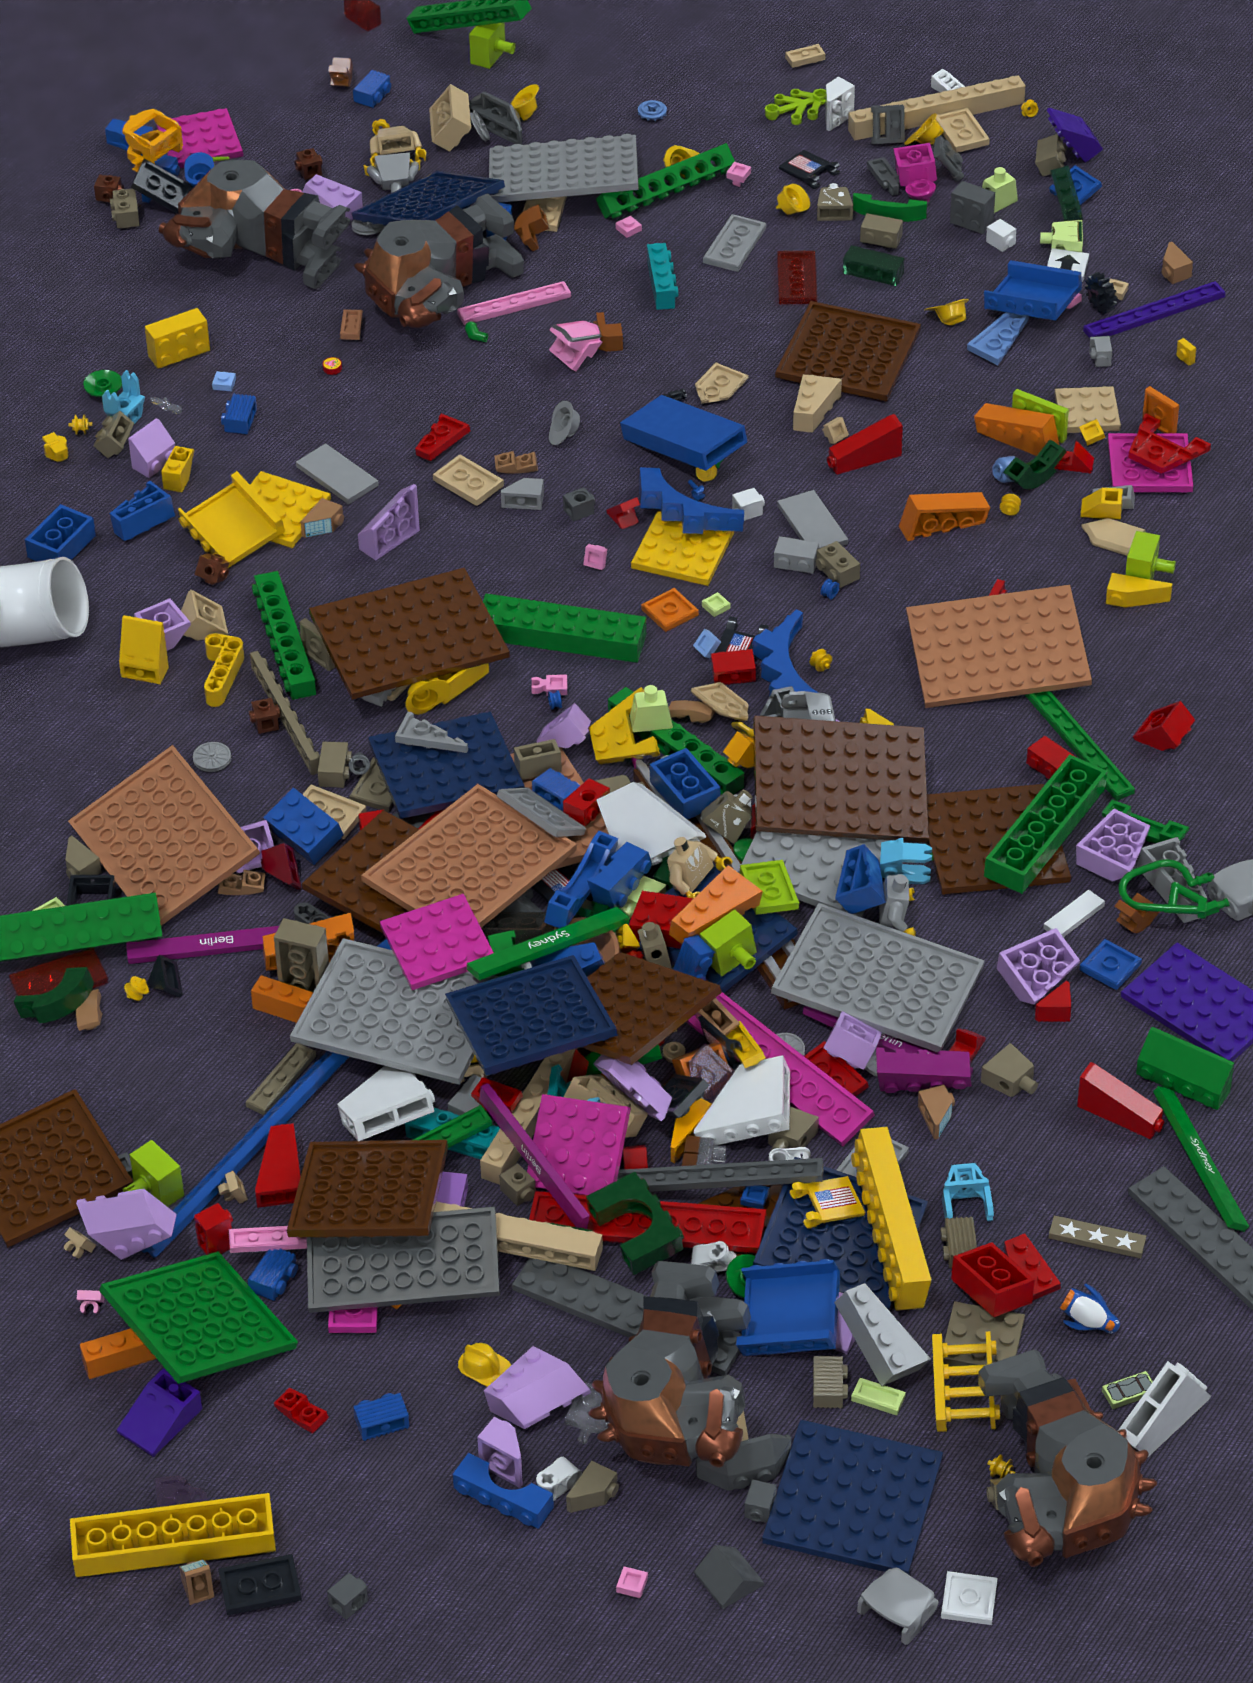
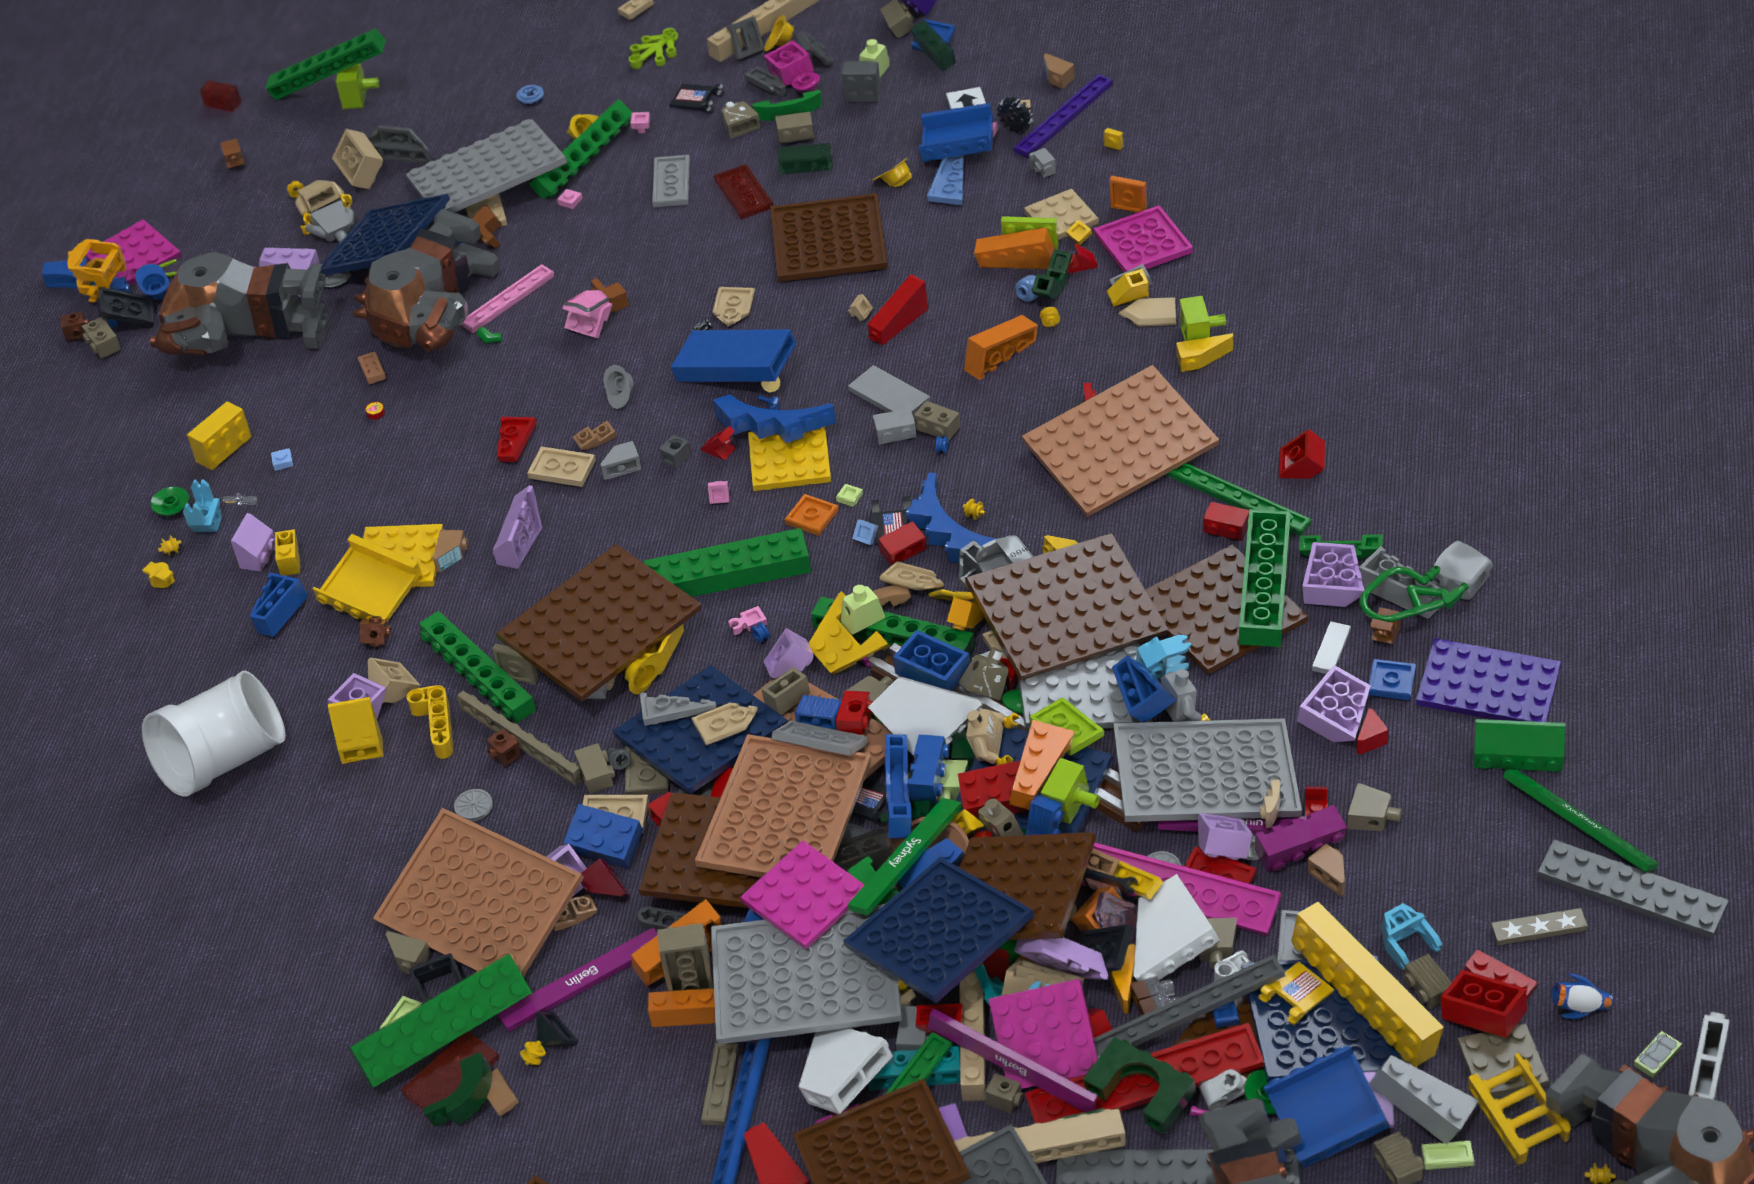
camera: 20 degrees left, 0 degrees up
(60, 535) = (211, 655): blue brick -> none
(113, 434) = (208, 543): dark tan brick -> none
(239, 413) = (315, 483): blue brick -> none
(308, 163) = (250, 241): copper brick -> none
(337, 473) = (436, 504): light grey tile -> none
(372, 88) = (268, 158): blue brick -> none
(465, 765) = (723, 722): none -> tan tile
(479, 126) = (387, 157): light grey wheel -> none
(525, 101) = (415, 120): yellow piece -> none
(661, 276) = (627, 230): teal brick -> none
(750, 502) = (824, 395): white brick -> none
(793, 199) = (701, 128): yellow piece -> none
(814, 400) = (826, 289): tan wedge -> none
(838, 102) = (691, 34): white slope -> none
(912, 1029) = (1271, 804): none -> tan slope
(962, 130) = (810, 21): tan plate -> none
(1001, 235) = (897, 97): white brick -> none
(1064, 236) = (952, 79): yellowish green torso -> none
(1117, 1102) = (1482, 799): red slope -> none
(1159, 452) = (1149, 228): red wing -> none

